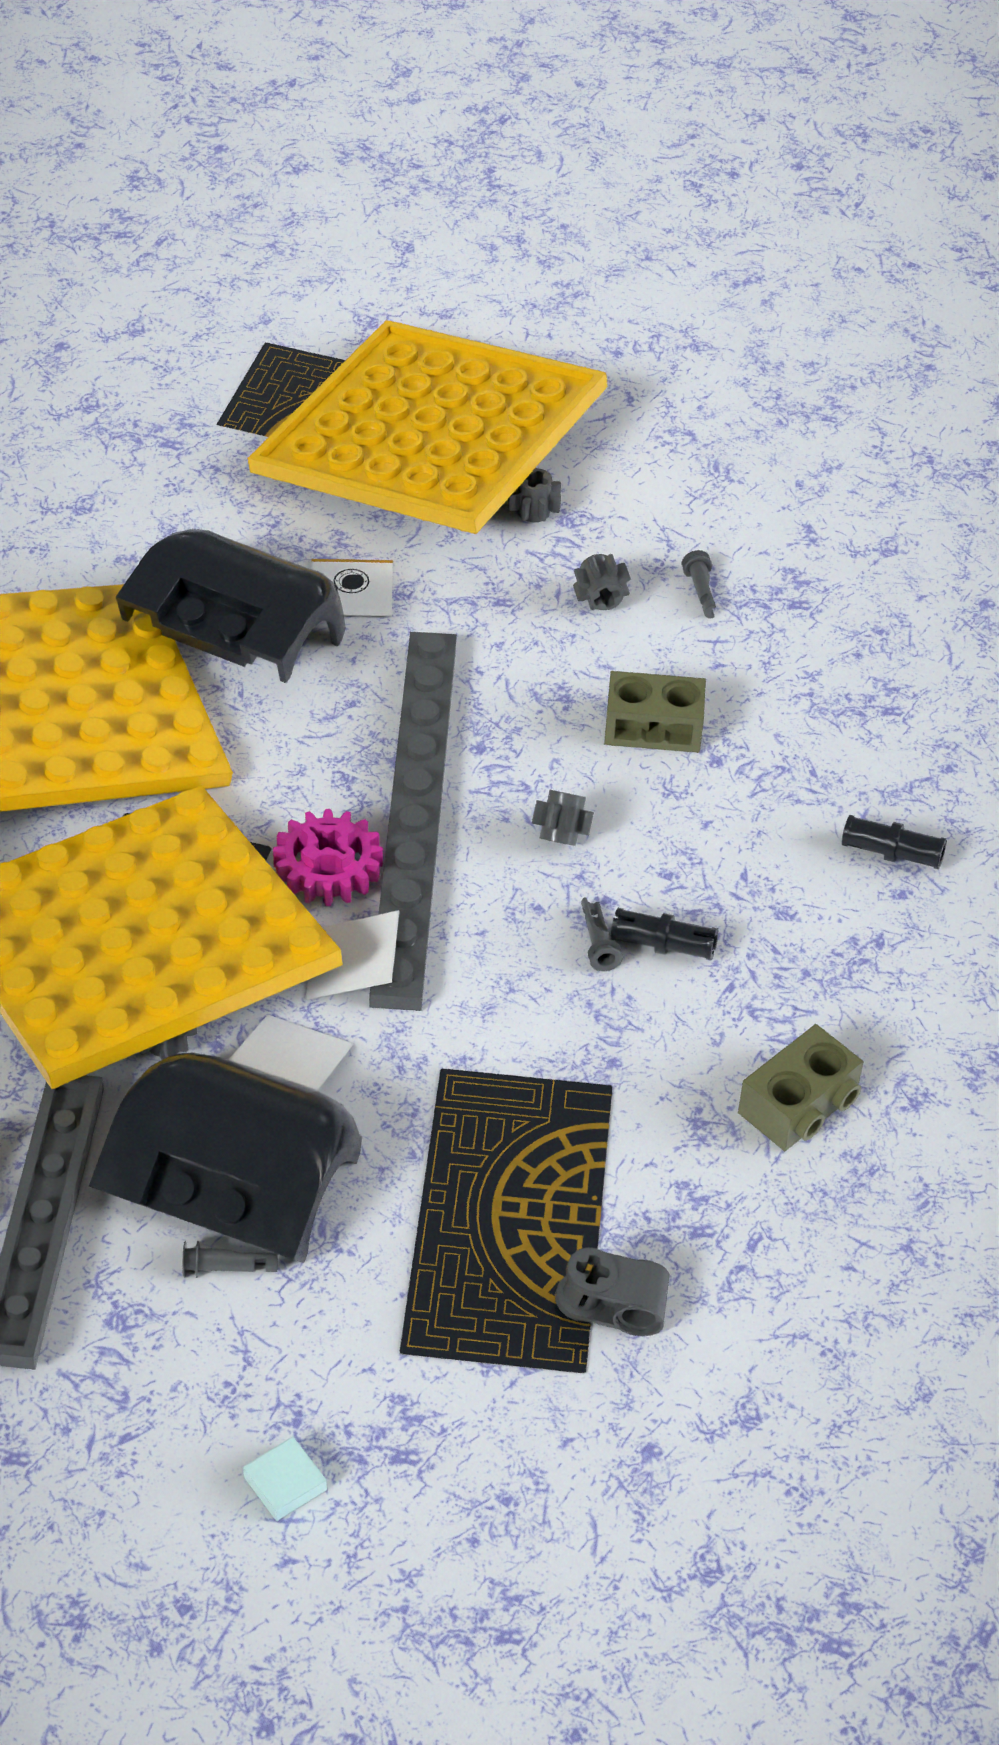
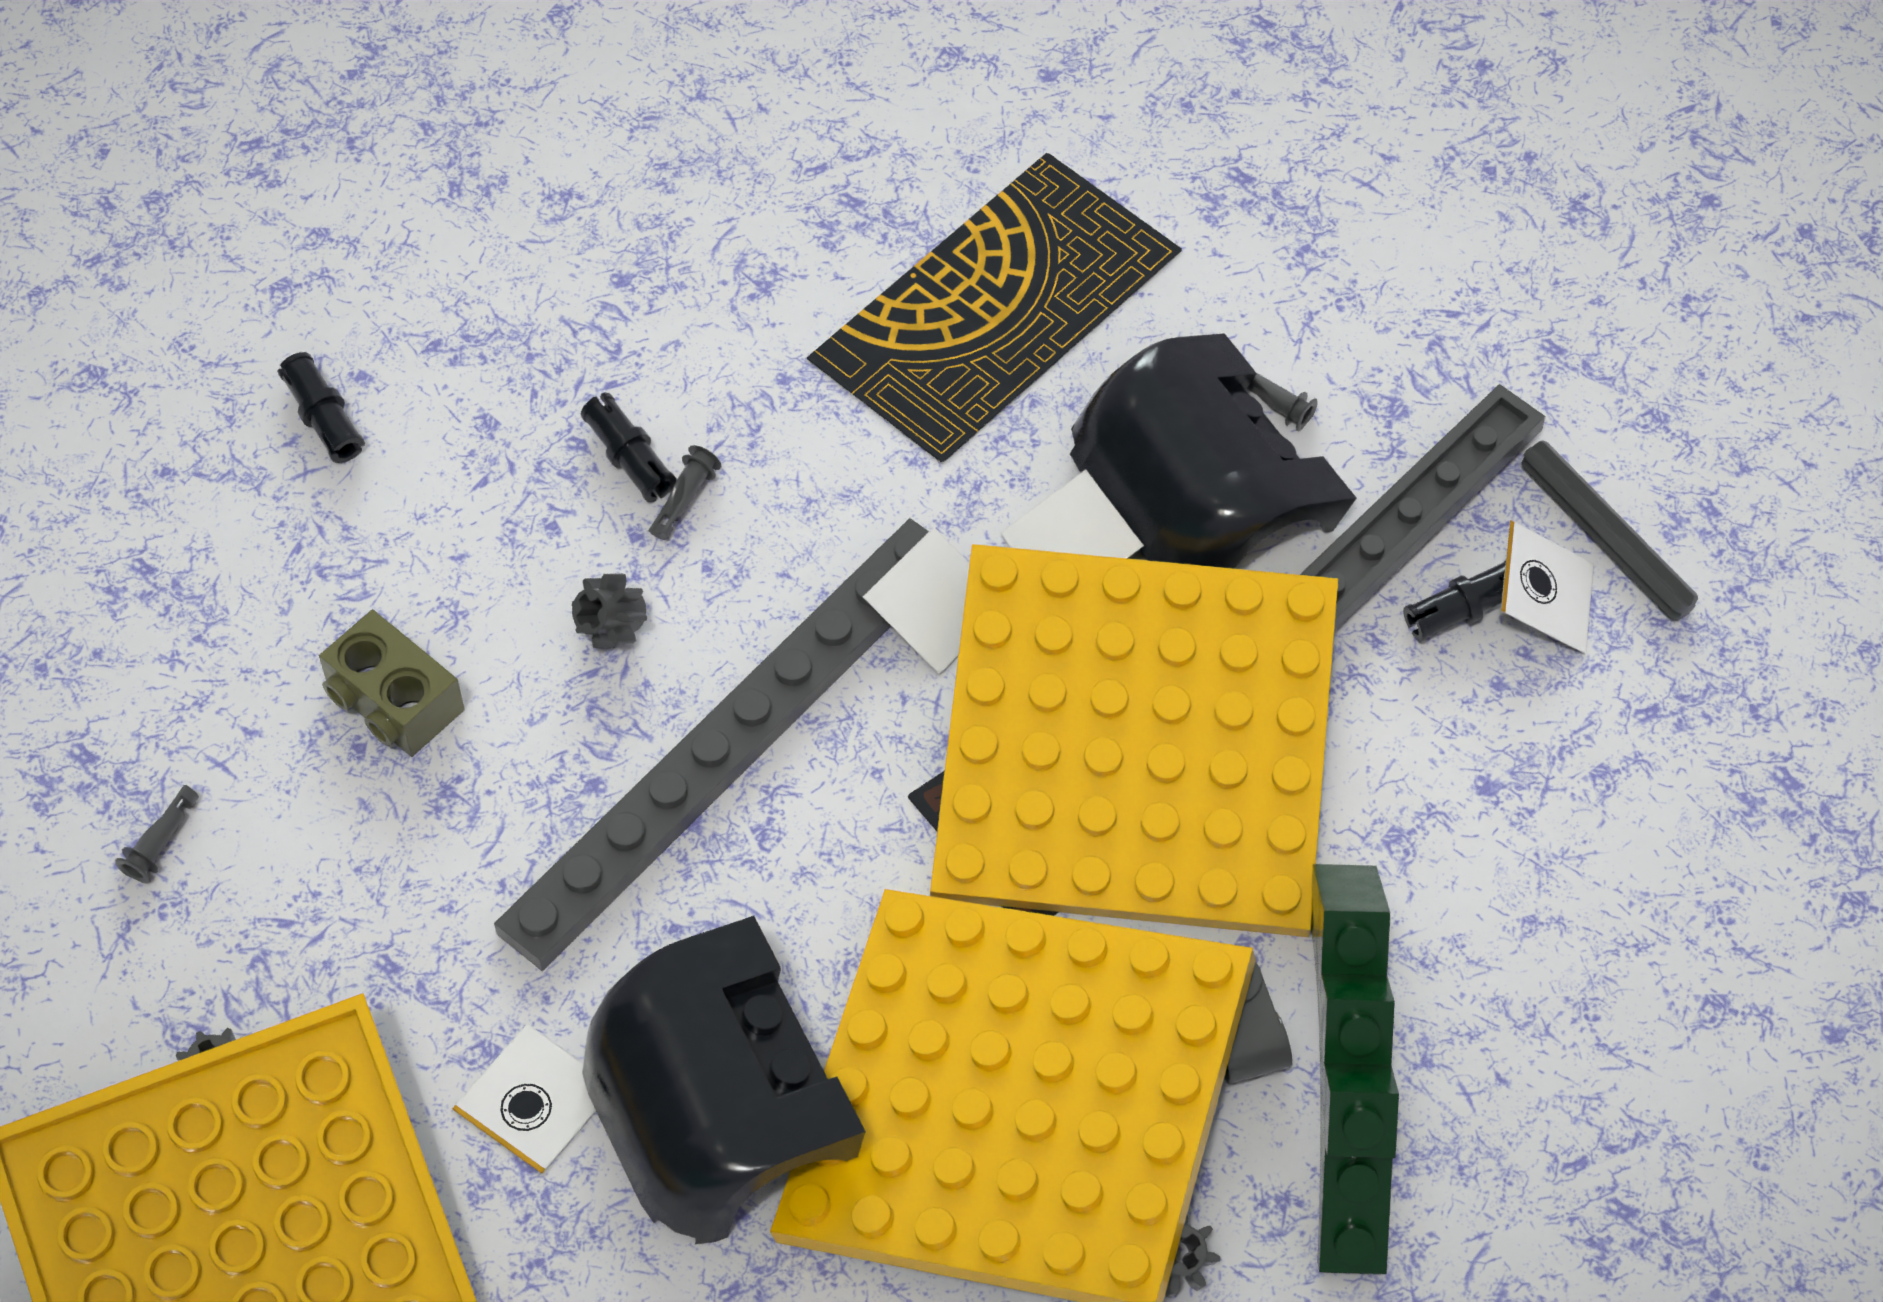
camera: 140 degrees left, 10 degrees up
(284, 1478) = (1350, 201): light aqua tile -> none
(328, 857) = (844, 725): dark pink gear -> none
(601, 582) = (277, 880): dark grey gear -> none
(619, 1291) = (978, 171): dark grey piece -> none
(801, 1088) = (660, 235): olive brick -> none

